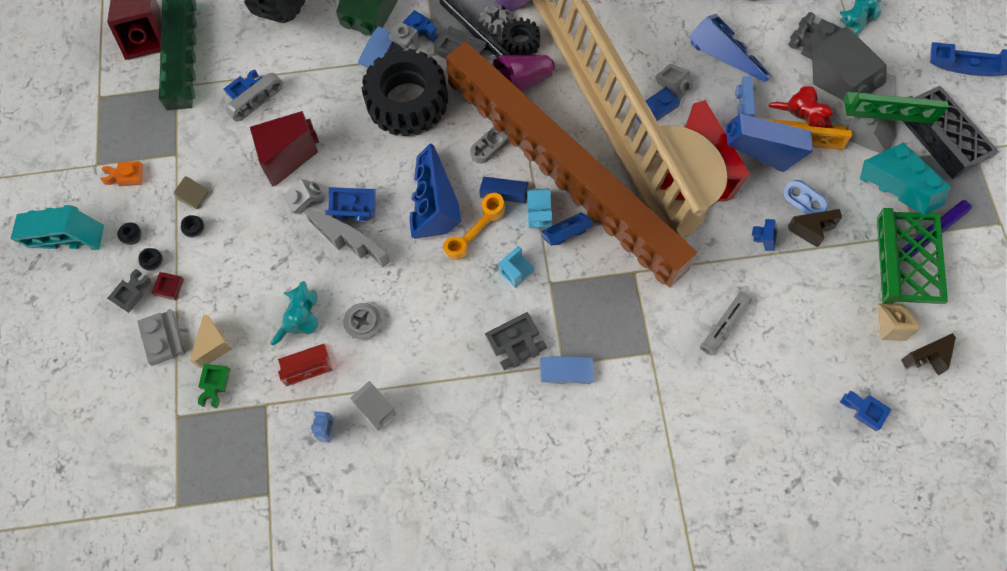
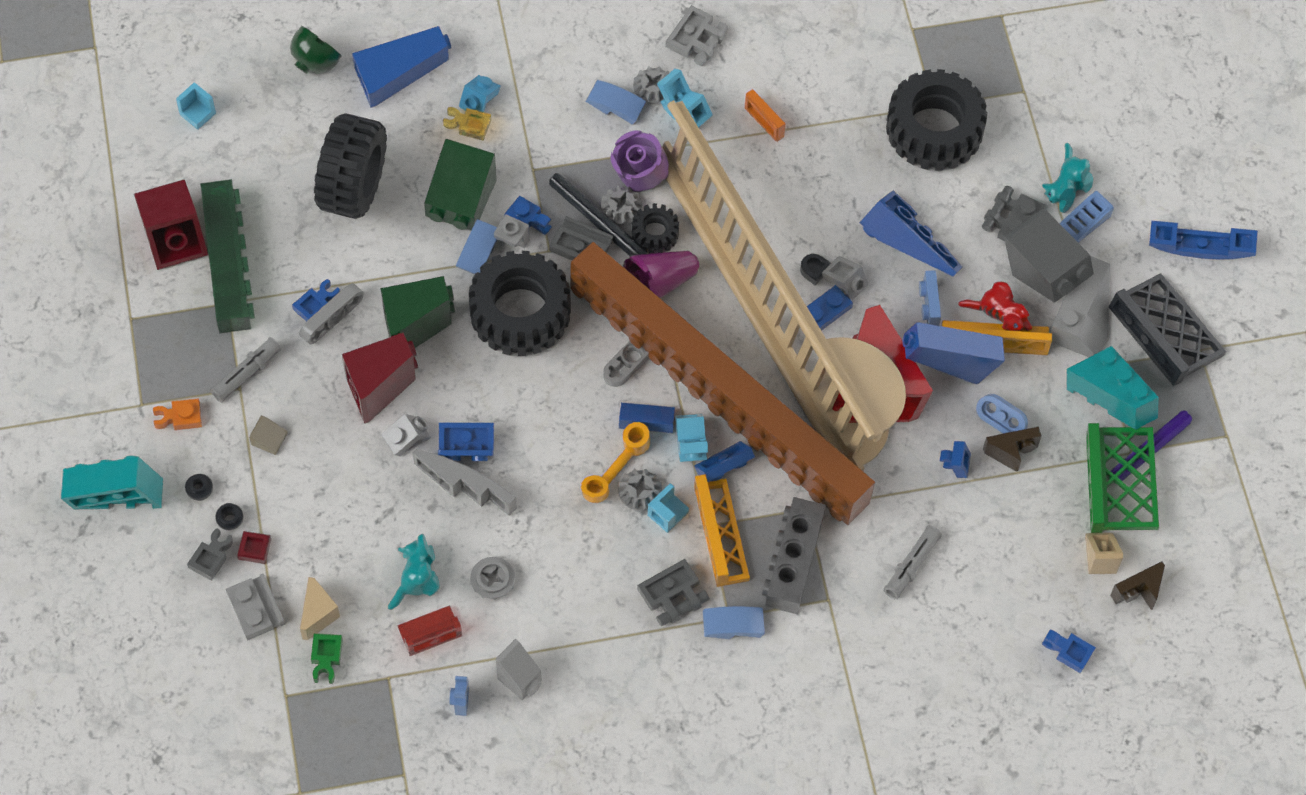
camera: 10 degrees left, 5 degrees down
(184, 136) = (253, 362): none -> light grey pin
(188, 222) = (274, 468): black plate -> none
(320, 94) = (418, 309): none -> dark green slope
(435, 201) = (566, 436): blue wedge -> none
(483, 252) = (628, 493): none -> light grey gear
(552, 288) = (712, 530): none -> light orange fence
(629, 277) = (789, 595): none -> flat silver brick
(647, 72) = (812, 267): none -> black tile
(886, 30) = (1097, 206): none -> medium blue slope
(894, 107) = (1098, 305): green fence -> none

